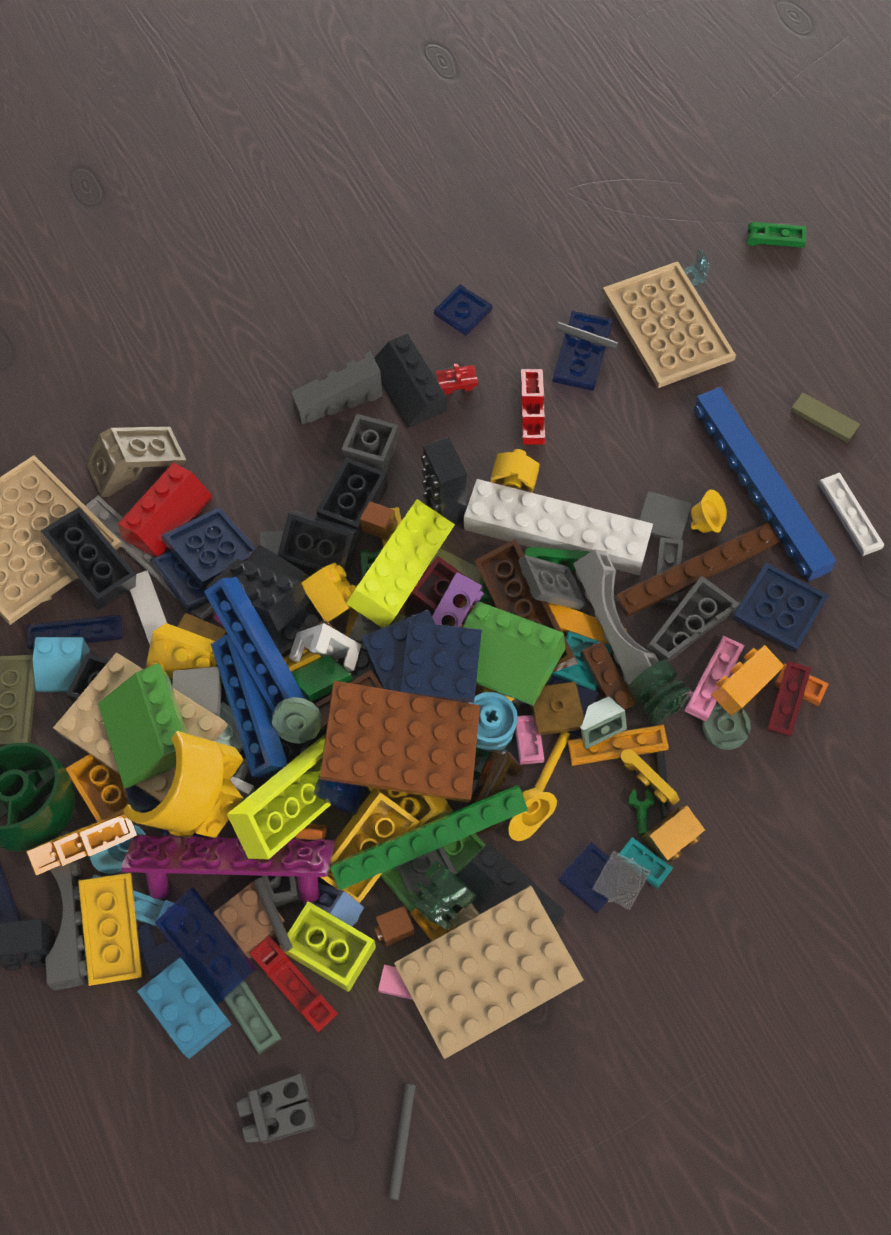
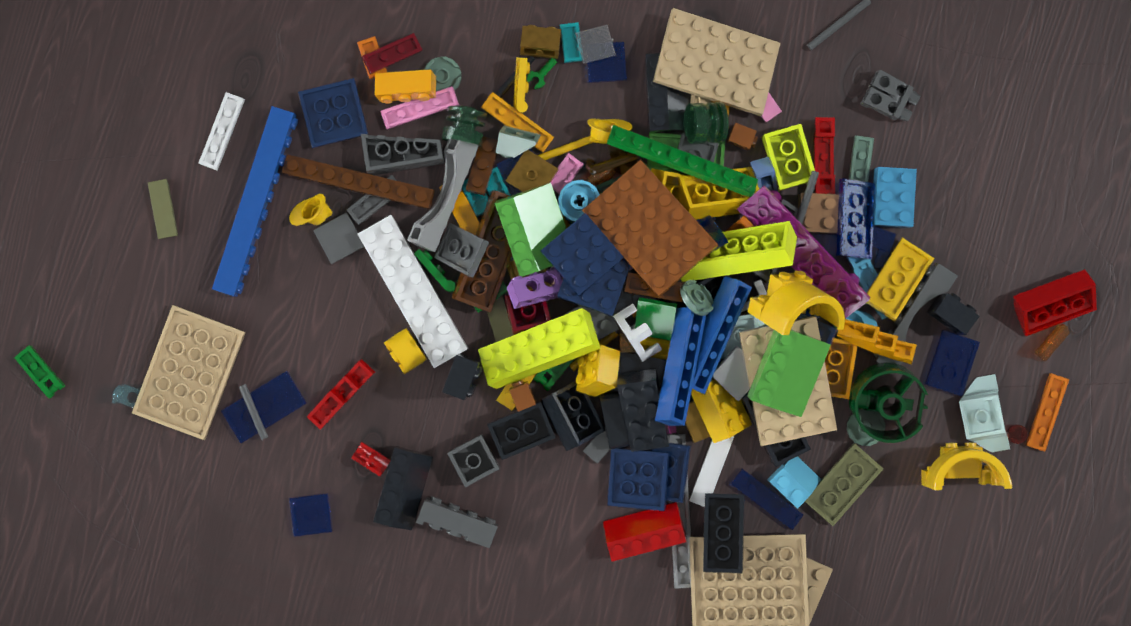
camera: 135 degrees left, 25 degrees up
(124, 452) = (629, 595): dark tan bracket -> none

